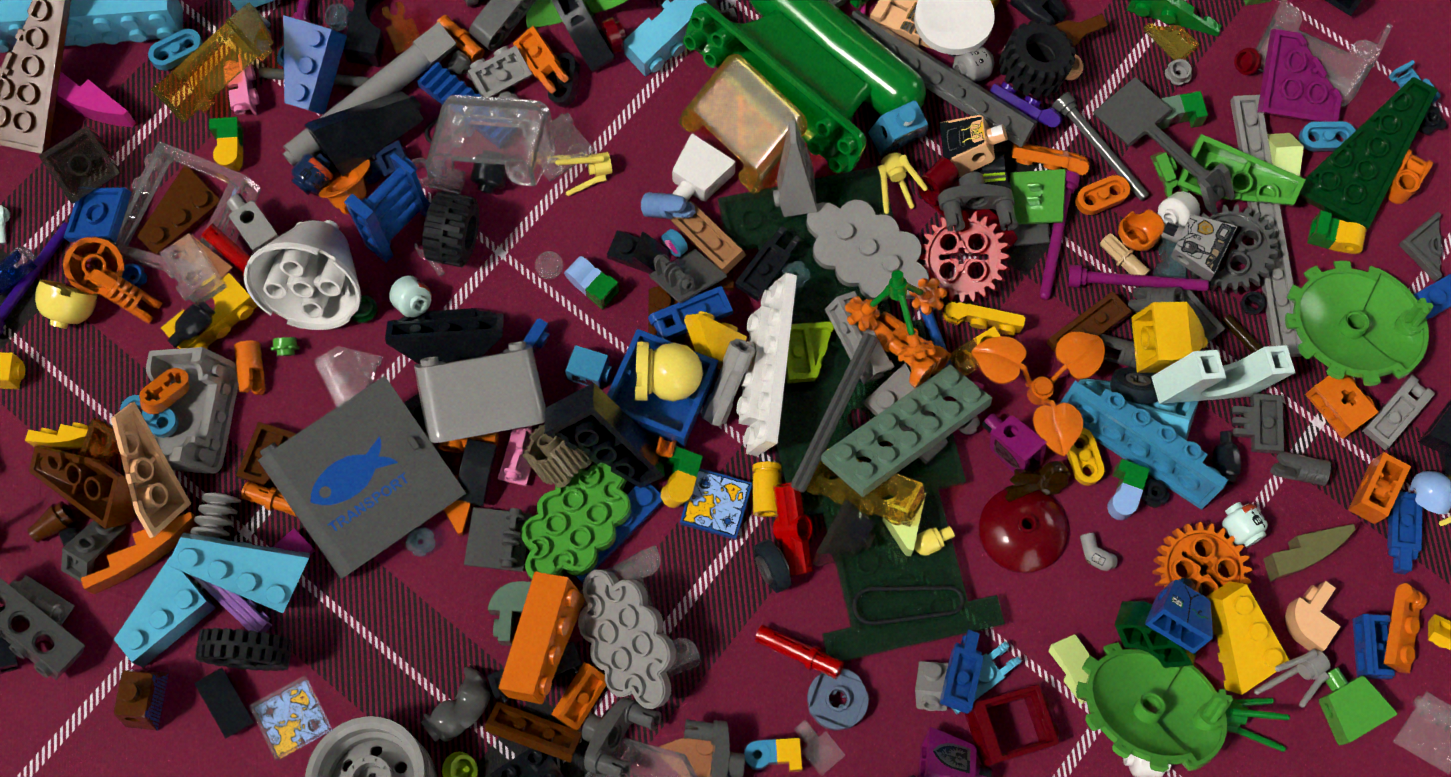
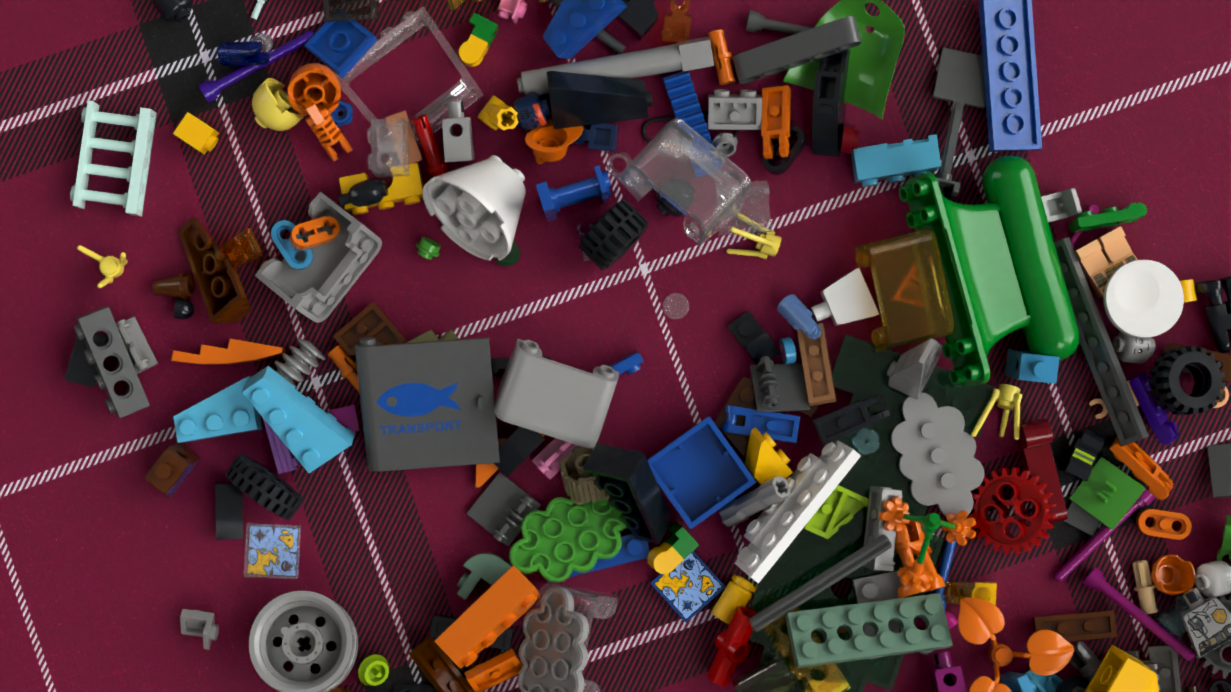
camera: 35 degrees right, 15 degrees up
(65, 439) = (222, 223): yellow slope -> none
(85, 547) = (188, 327): dark grey bracket -> none
(150, 479) = (266, 308): light nougat wedge -> none
(179, 212) = (407, 77): reddish brown wing -> none
(249, 367) = (390, 250): orange hinge -> none
(282, 191) = (498, 115): none -> yellow piece
(347, 372) = (464, 302): clear slope -> none
(410, 296) = (549, 268): light aqua head -> none
(420, 549) = (441, 481): clear light blue plate -> none
(446, 334) = (560, 318): black wedge -> none
(457, 715) = (403, 629): dark grey animal -> none
(459, 63) = (707, 80): dark grey hinge -> none
(588, 367) = (655, 415): dark azure brick -> none
(592, 282) = (700, 342): leg -> none
(665, 448) = (674, 522): orange hand -> none
(668, 371) = (710, 471): light yellow tile -> none
(772, 565) = (699, 665): black wheel -> none
(970, 142) = (1081, 417): torso -> none
(976, 195) = (1055, 466): dark grey connector -> none
(981, 317) = (993, 566): yellow hinge -> none
(1067, 106) = (1188, 429): dark grey piece -> none
(1148, 295) = (1144, 642): dark grey hinge -> none

